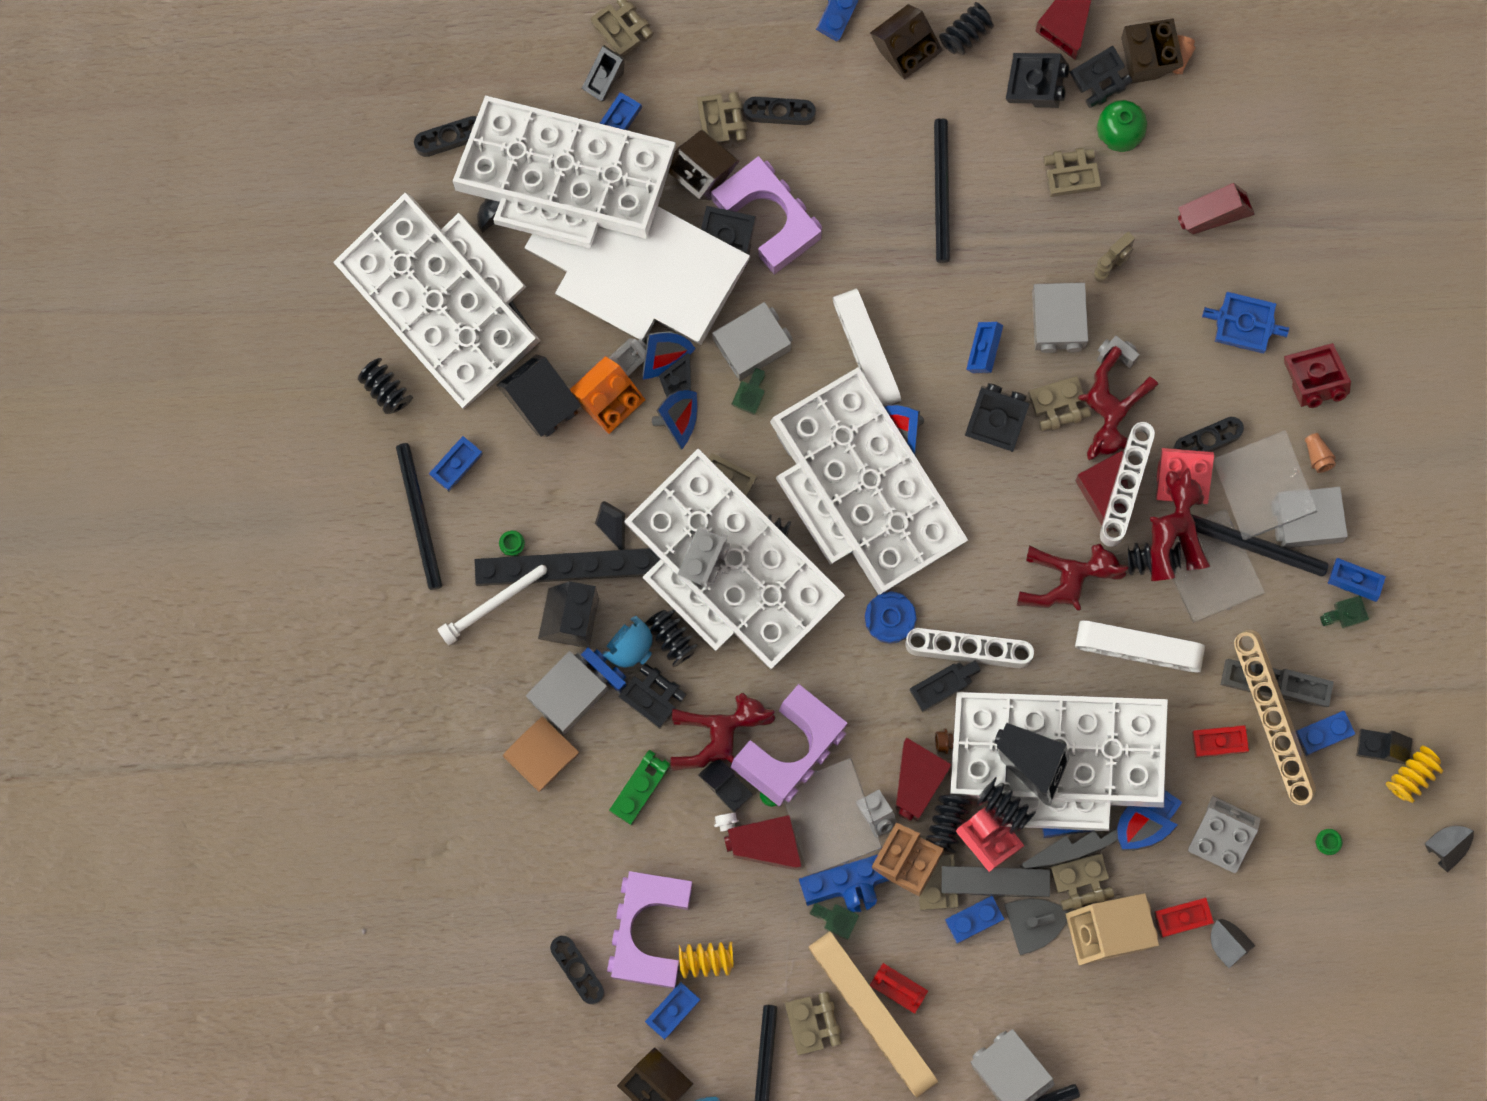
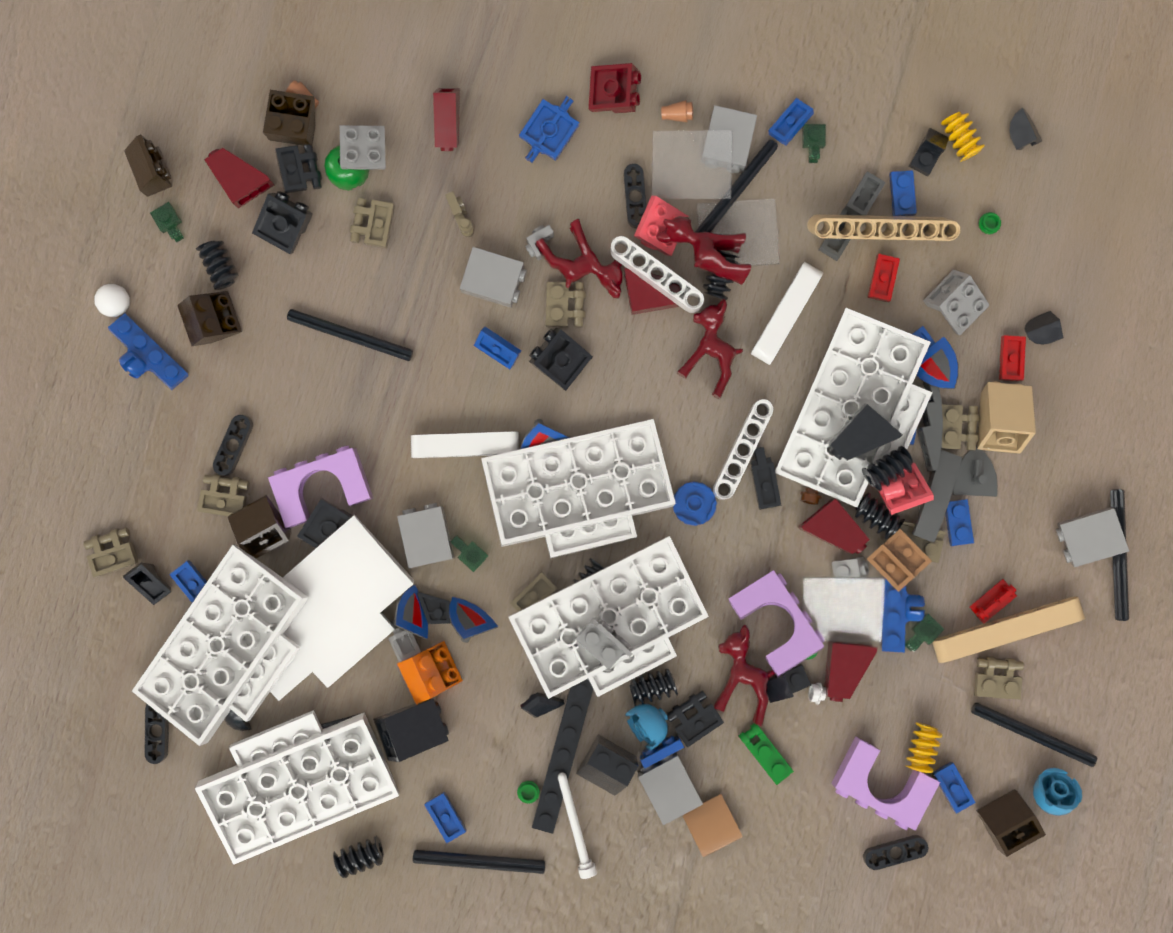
camera: 75 degrees left, 10 degrees up
(1148, 132) = (362, 147): none -> light grey bracket

